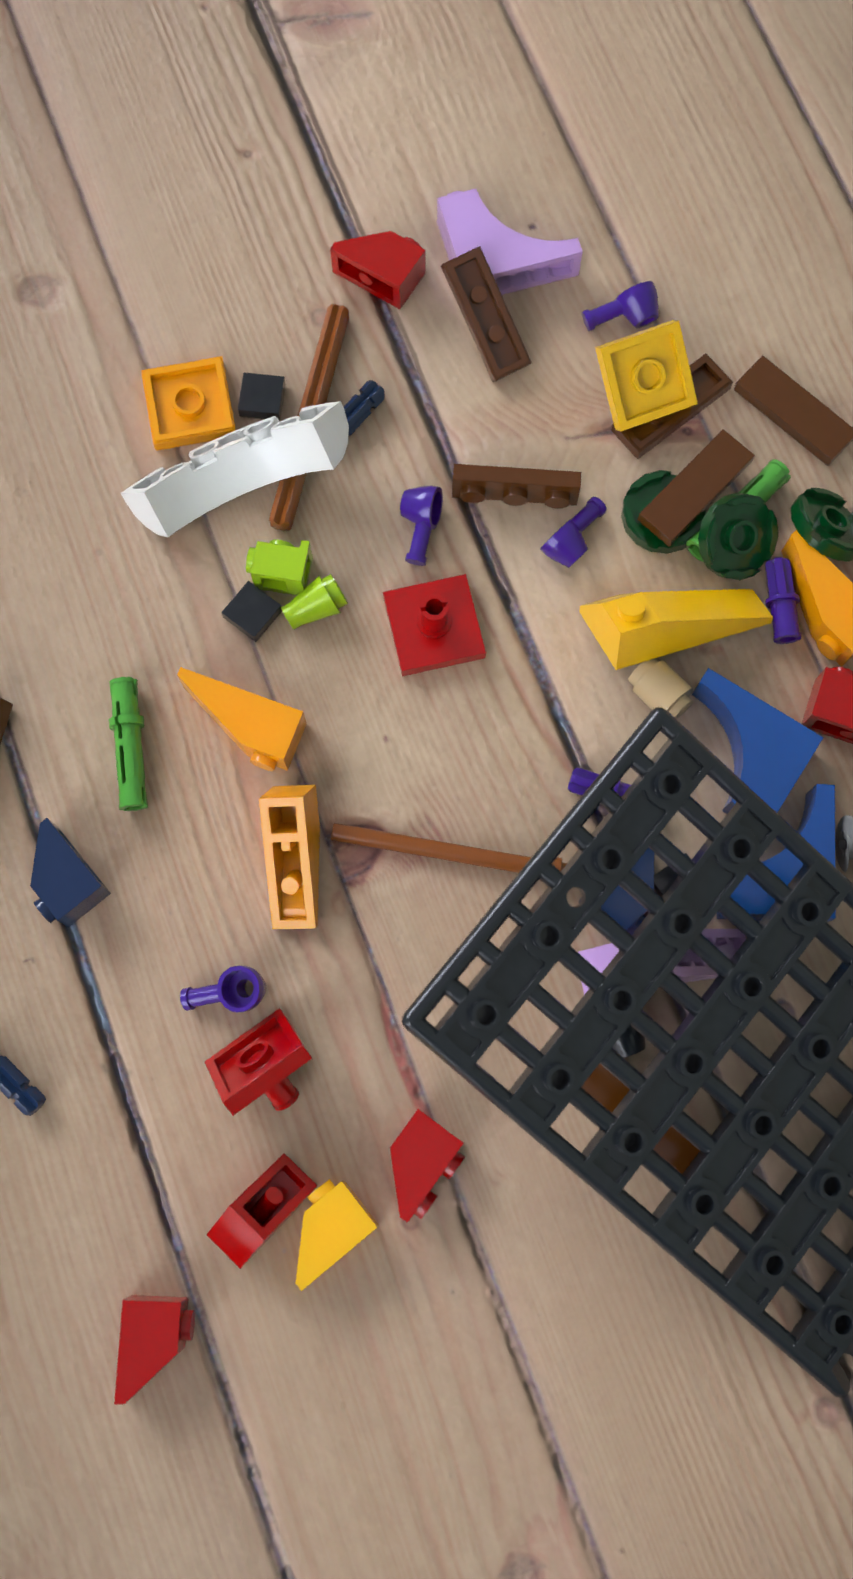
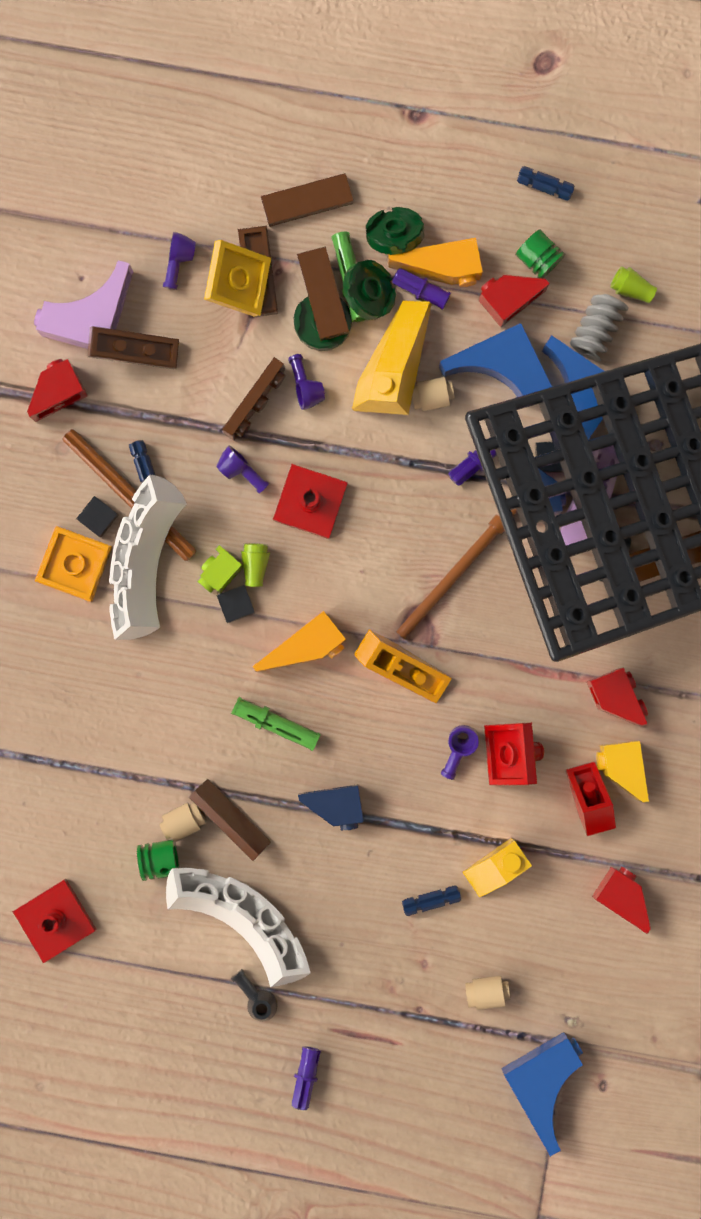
camera: 55 degrees left, 10 degrees up
(98, 1139) = (497, 868): none -> yellow slope

